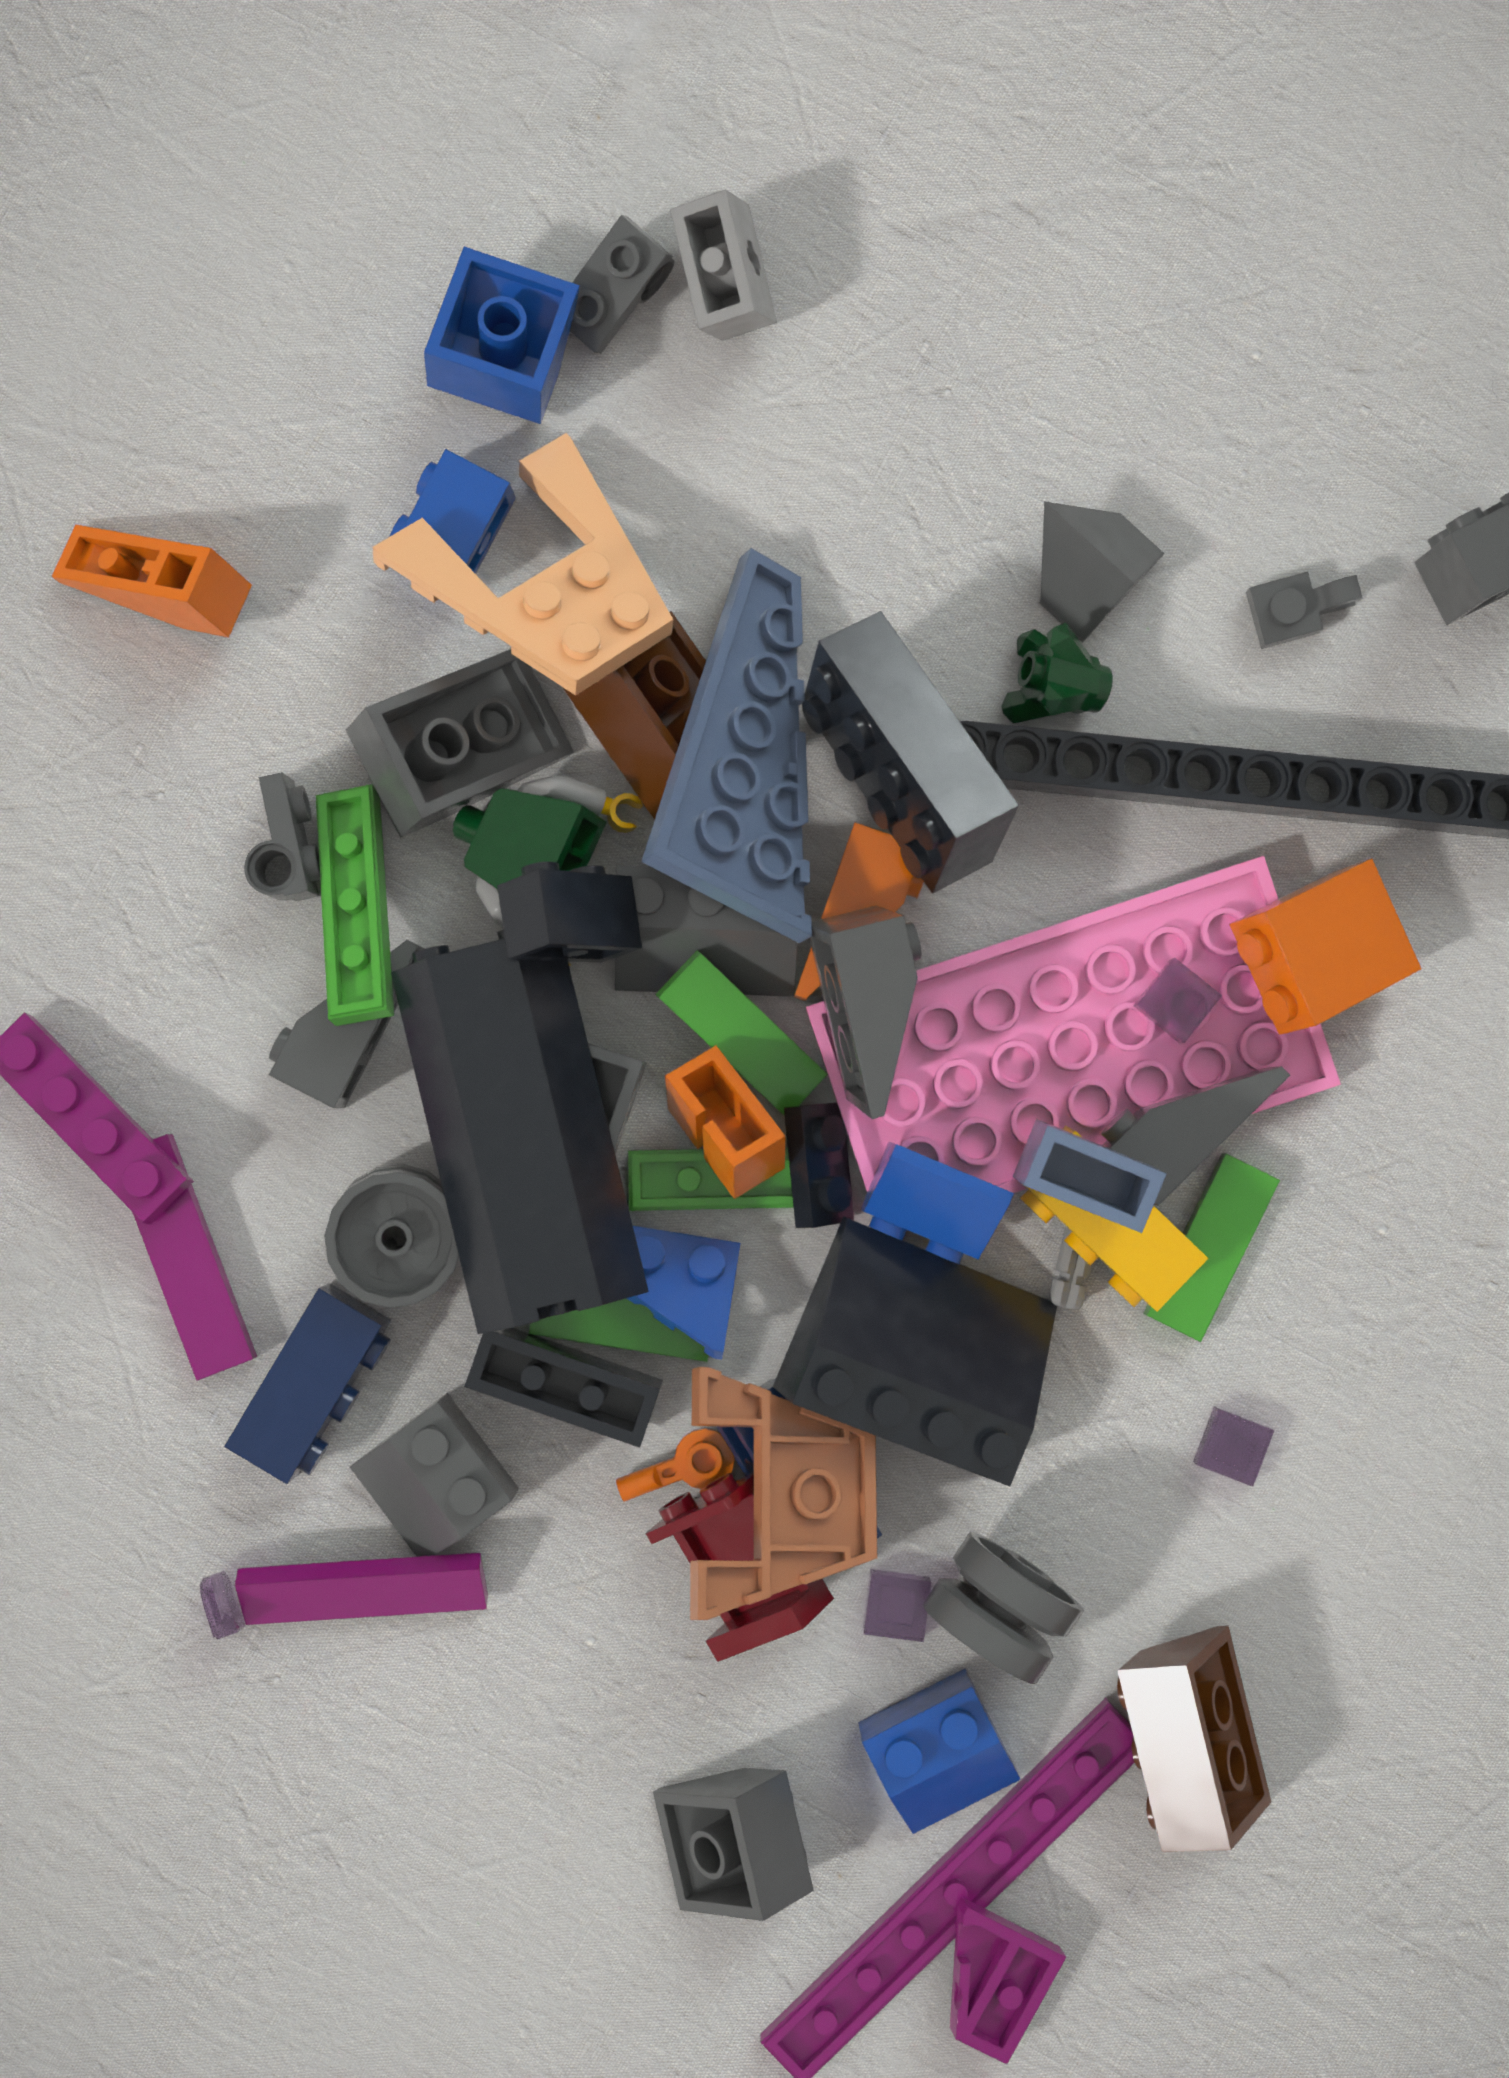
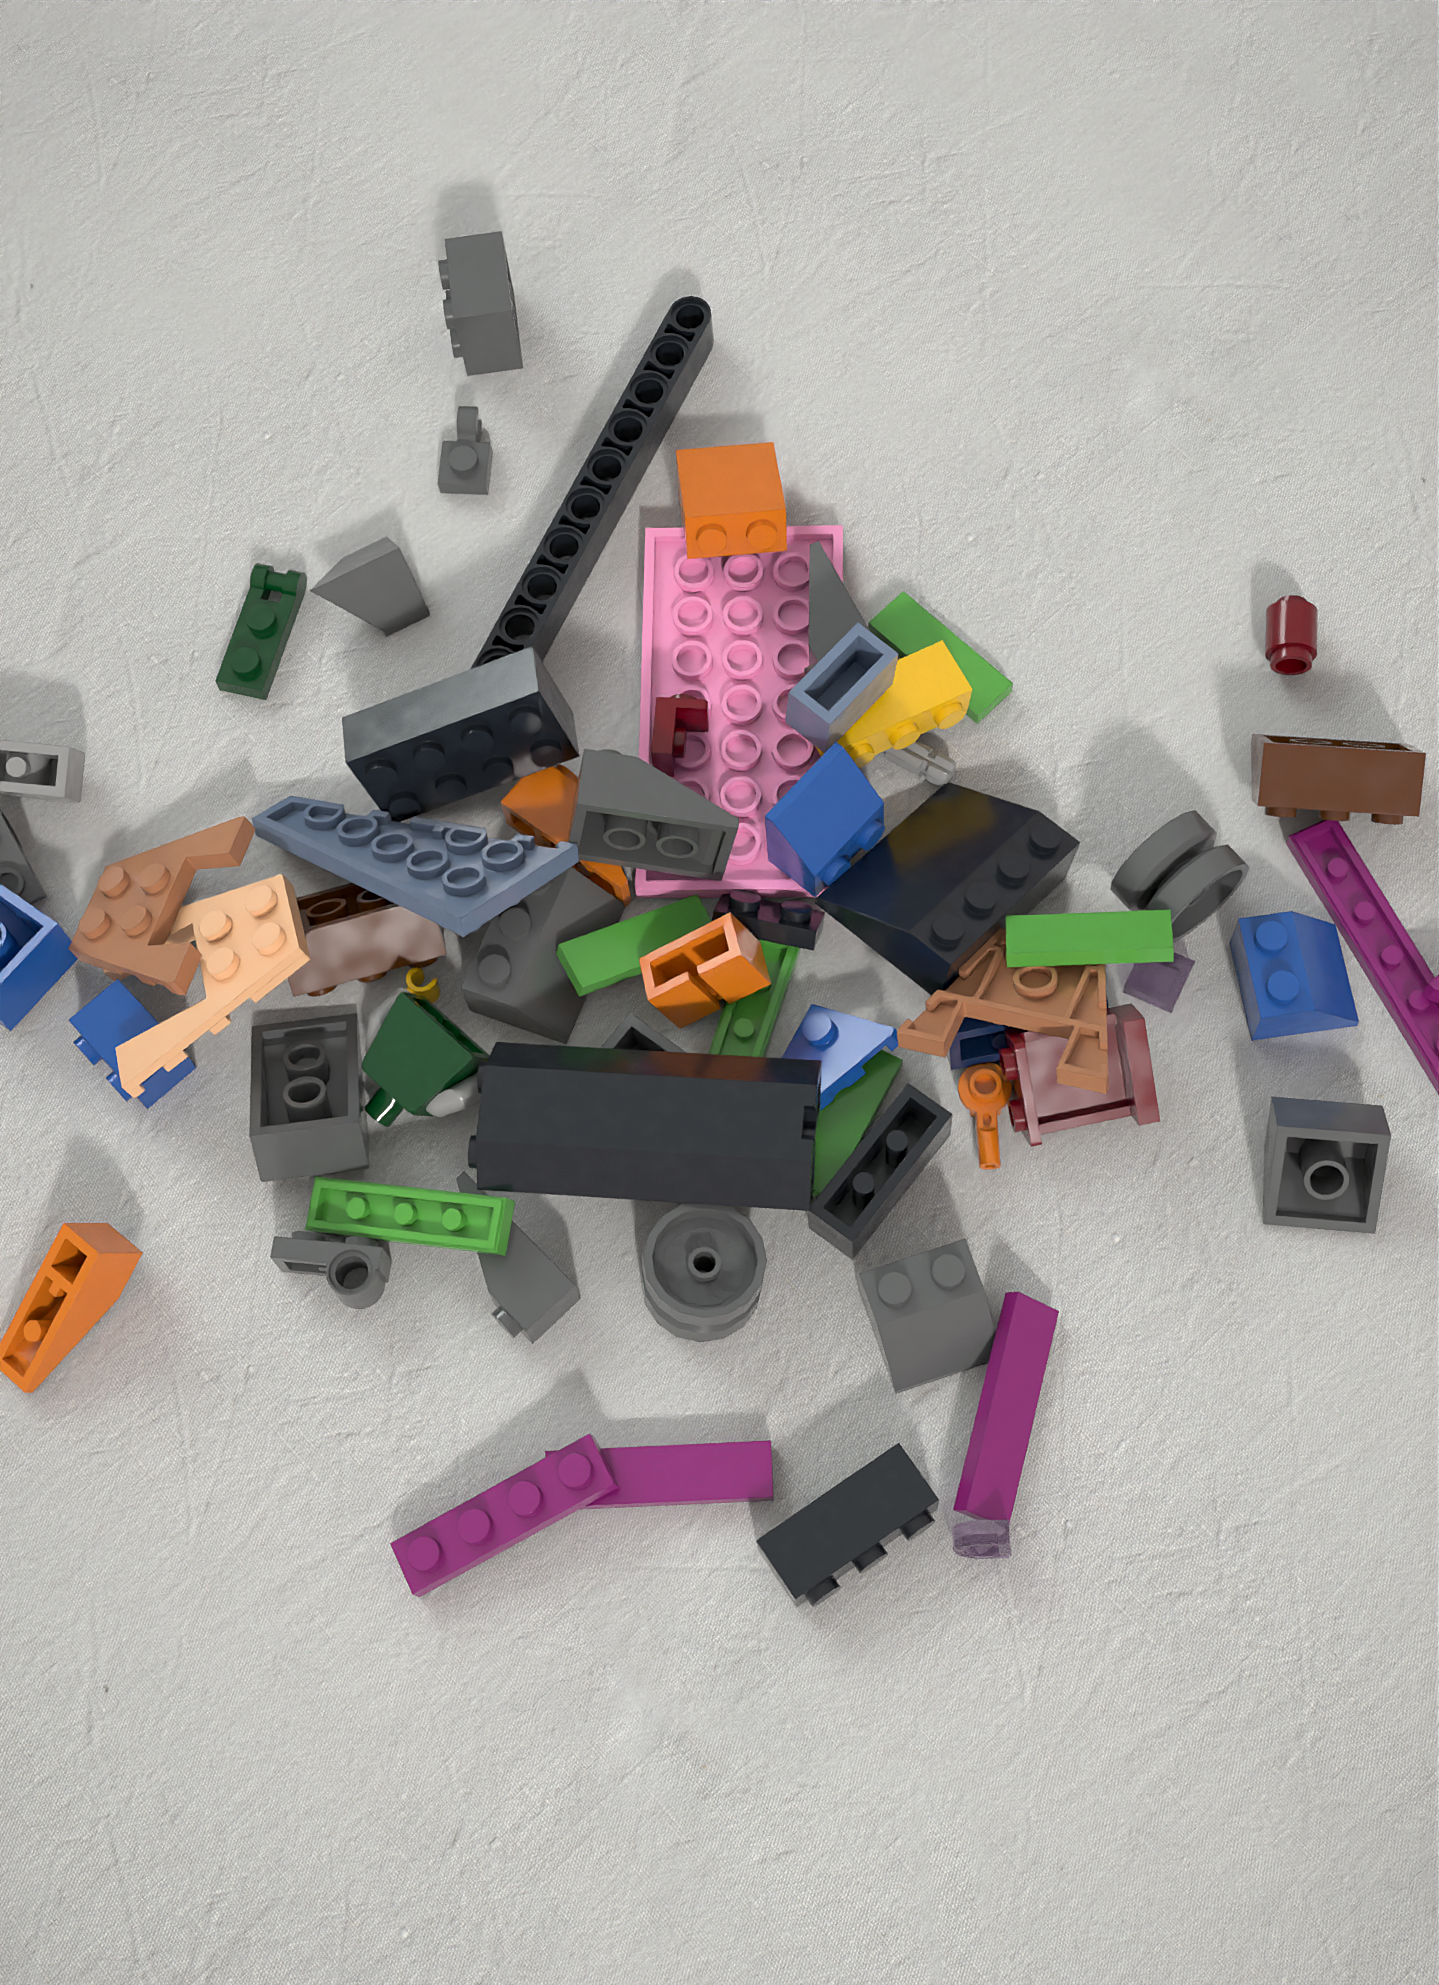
camera: 60 degrees left, 20 degrees down
(187, 1468) = (849, 1527): none -> black brick
(310, 1384) = (809, 1393): dark blue brick -> none
(569, 914) = (485, 1020): black brick -> none
(598, 467) = (141, 899): none -> nougat wing
(881, 1540) = (1089, 938): none -> bright green tile
(991, 985) = (671, 723): none -> dark red bracket
(994, 458) = (261, 632): none -> dark green plate
(1056, 677) = (447, 629): dark green rock -> none
(1177, 1000) = (733, 615): clear purple tile -> none
(1233, 1446) = (1106, 687): clear purple tile -> none
(1363, 1641) = (1291, 635): none -> dark red brick

